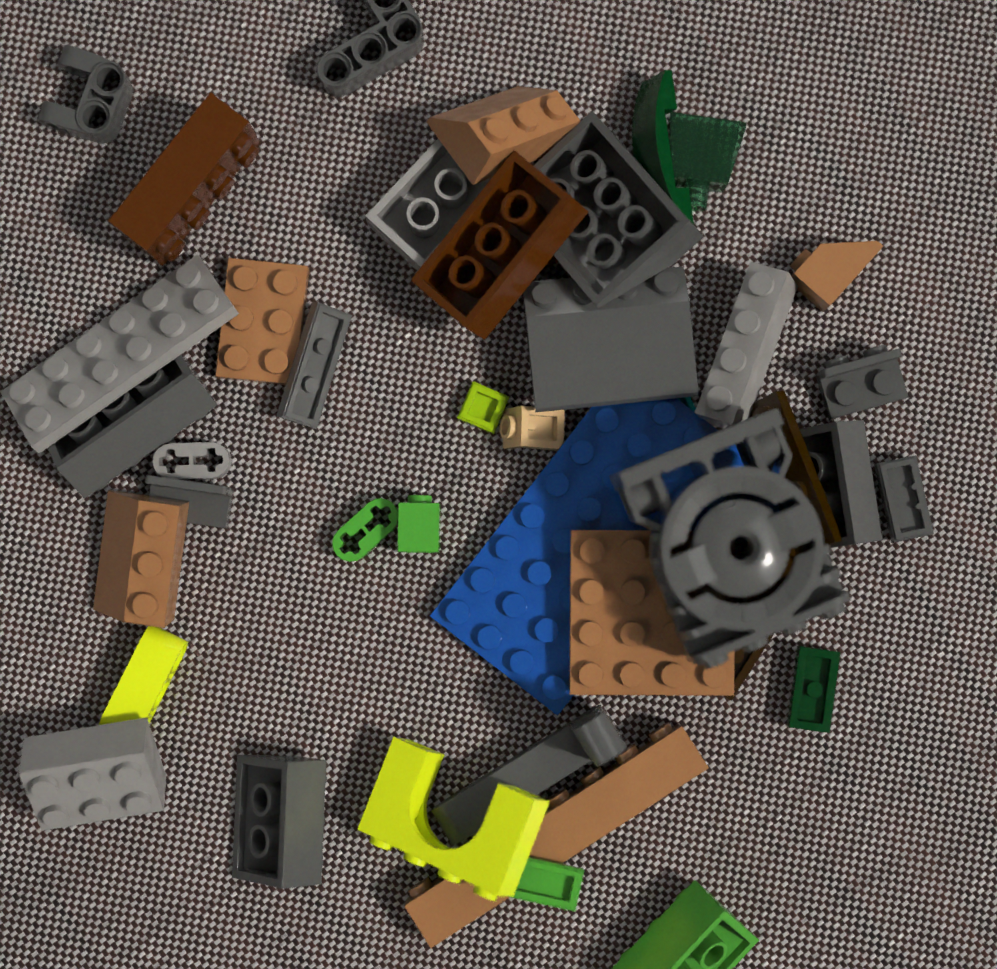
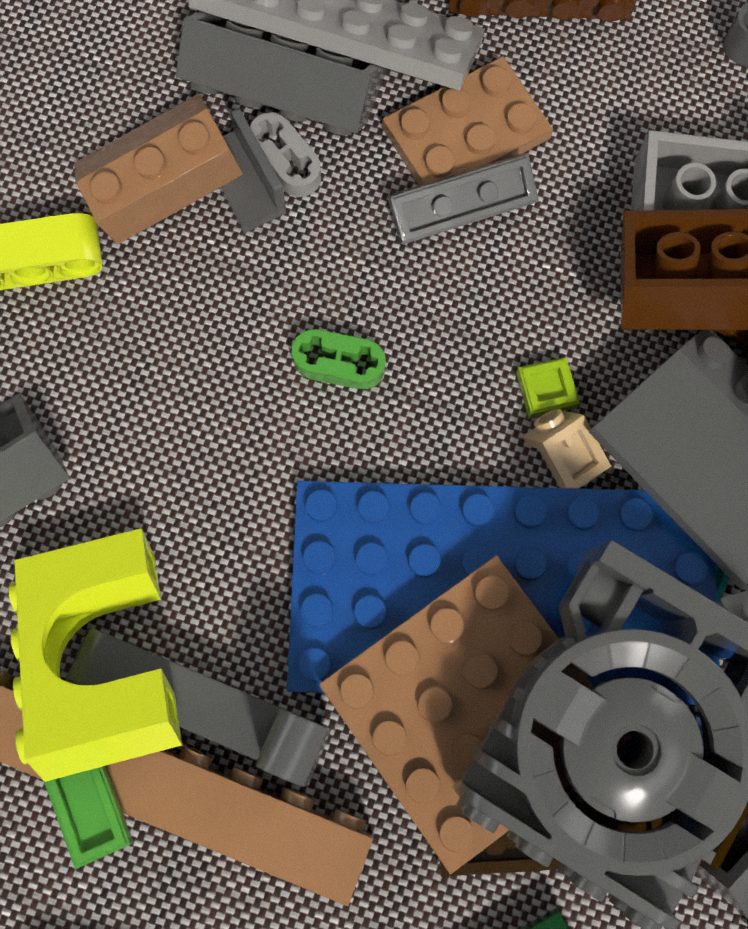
camera: 50 degrees right, 10 degrees down
(419, 525) = (381, 404): bright green brick -> none

